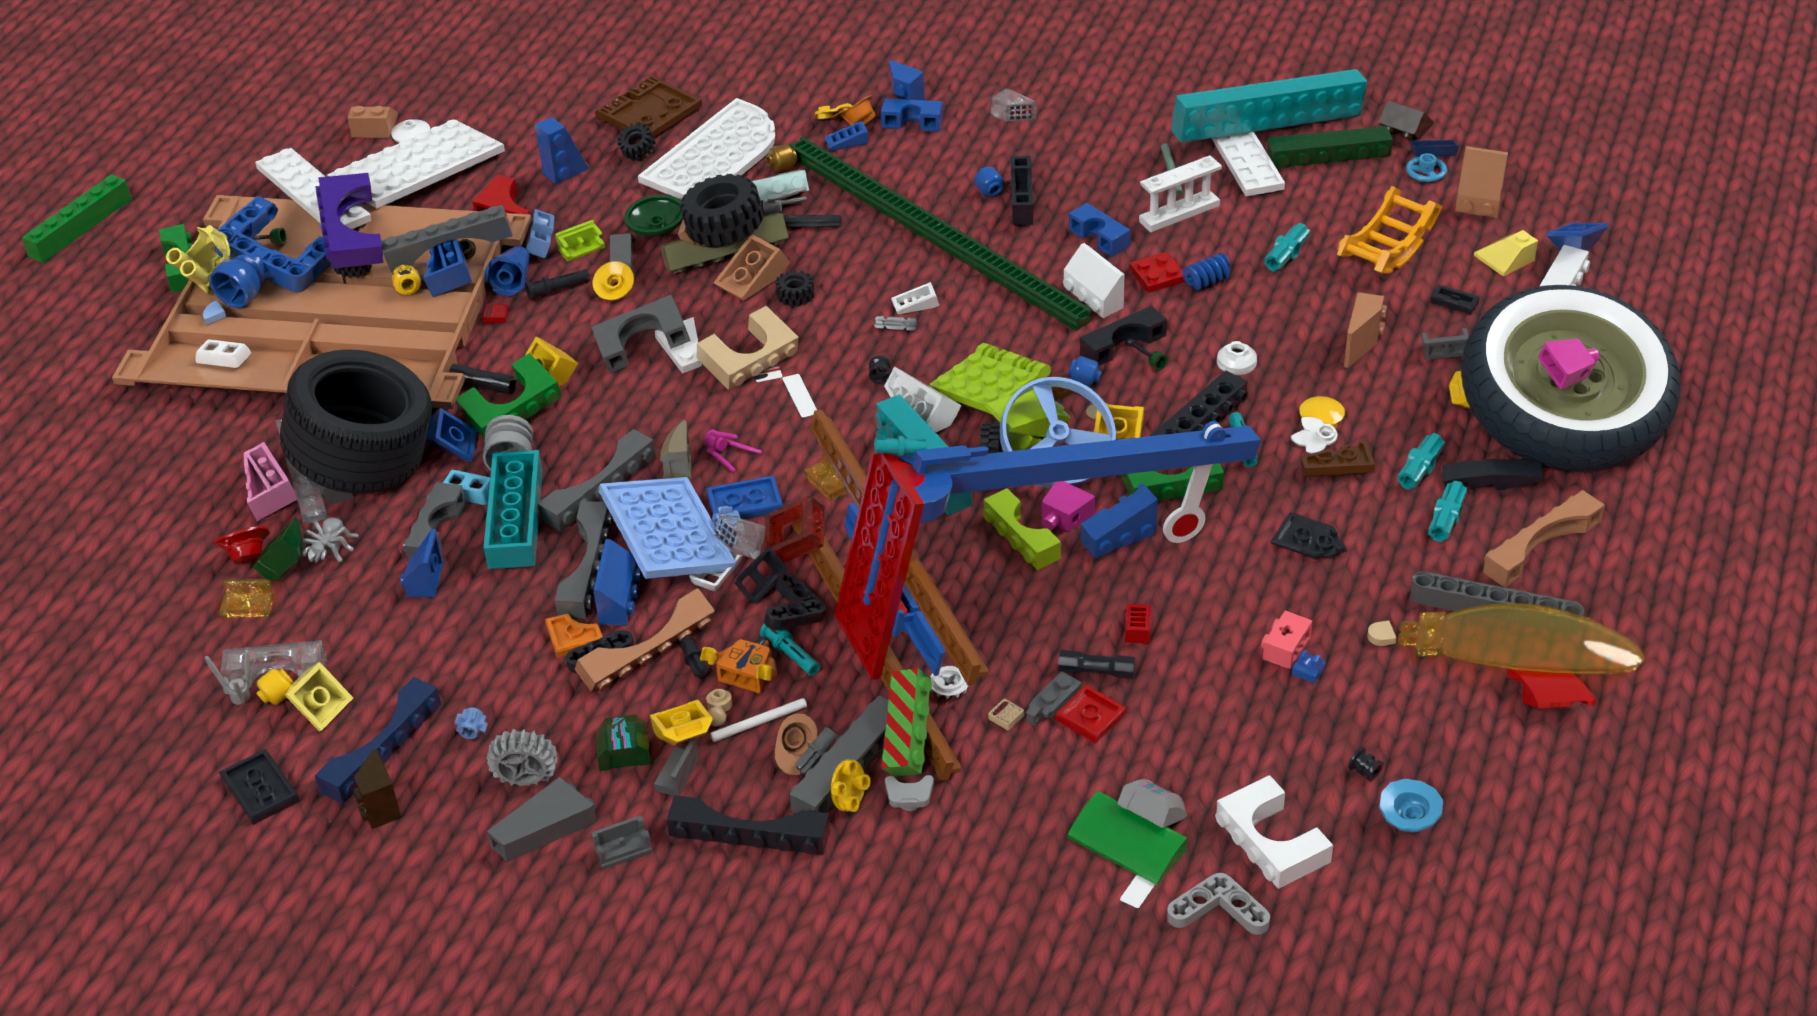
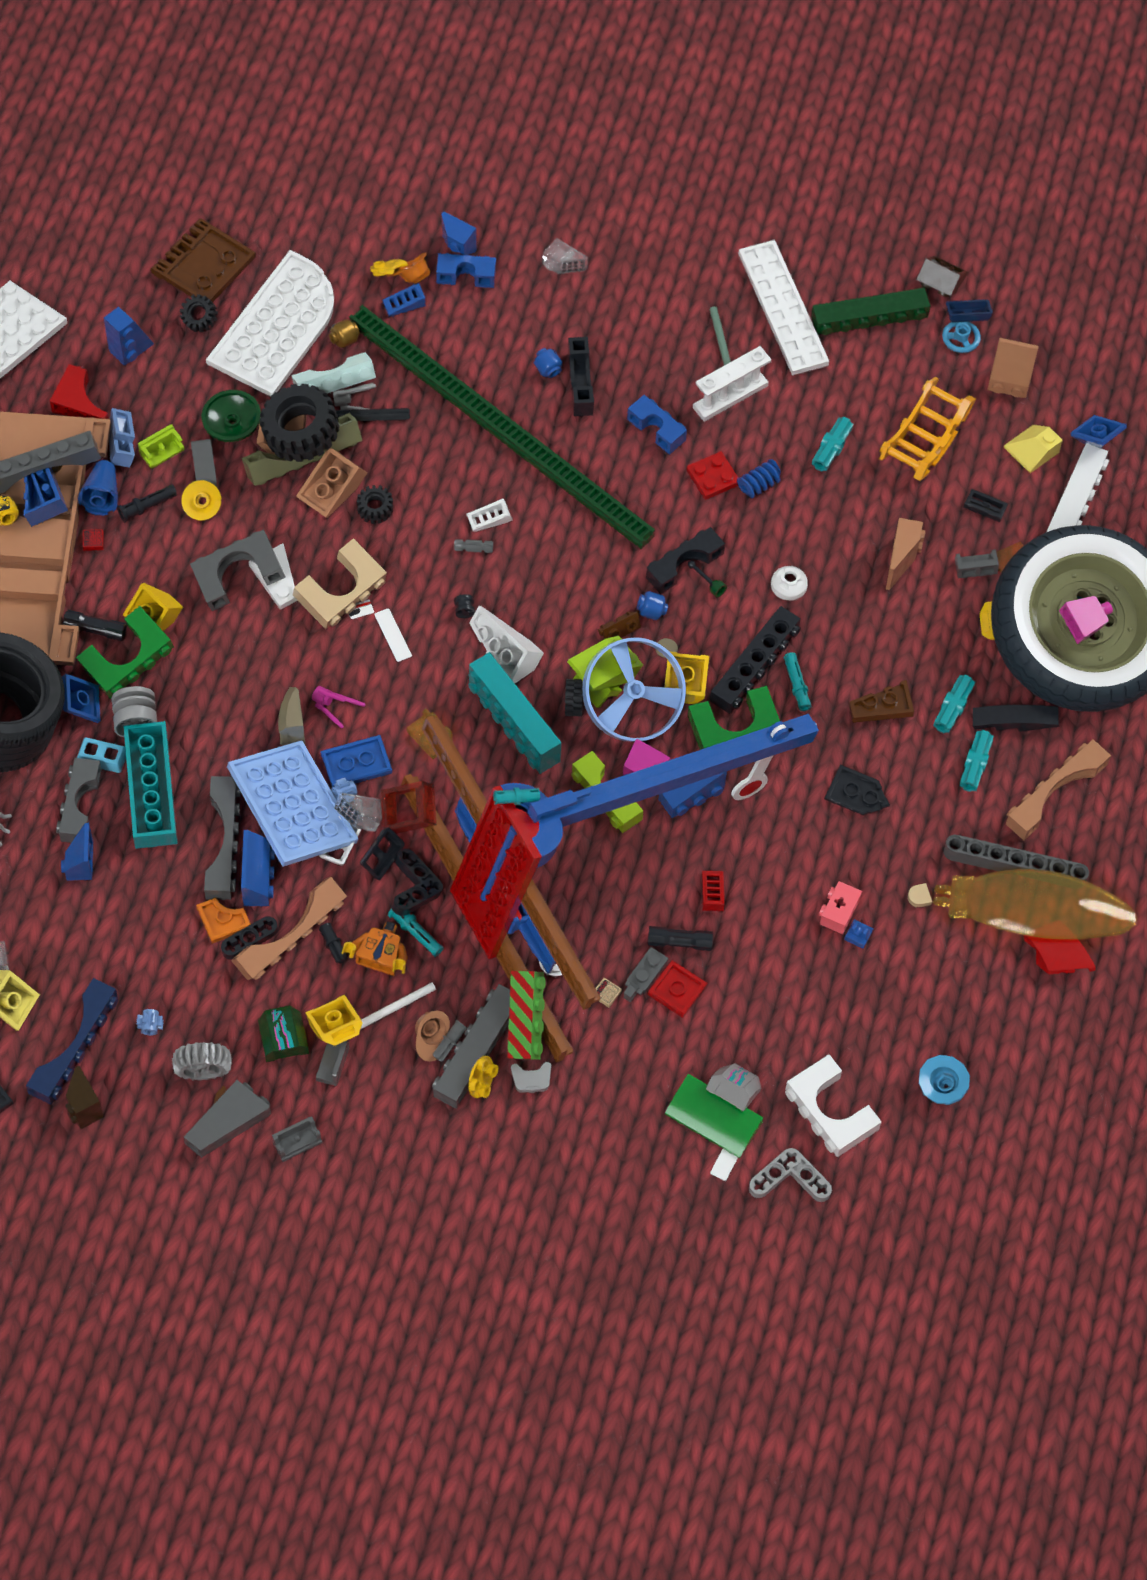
camera: 10 degrees left, 20 degrees up
(561, 506) = (195, 777): dark grey arch -> none
(718, 703) = (360, 1004): tan plate -> none
(798, 832) = (445, 1122): black arch -> none
(988, 376) = (566, 620): lime hinge -> none
(1095, 281) = (656, 496): white slope -> none
(1268, 105) = (812, 266): teal brick -> none
(1315, 435) = (858, 674): white plate -> none
(1323, 408) = (866, 646): yellow dish -> none
(1365, 764) = (906, 1035): black bush -> none

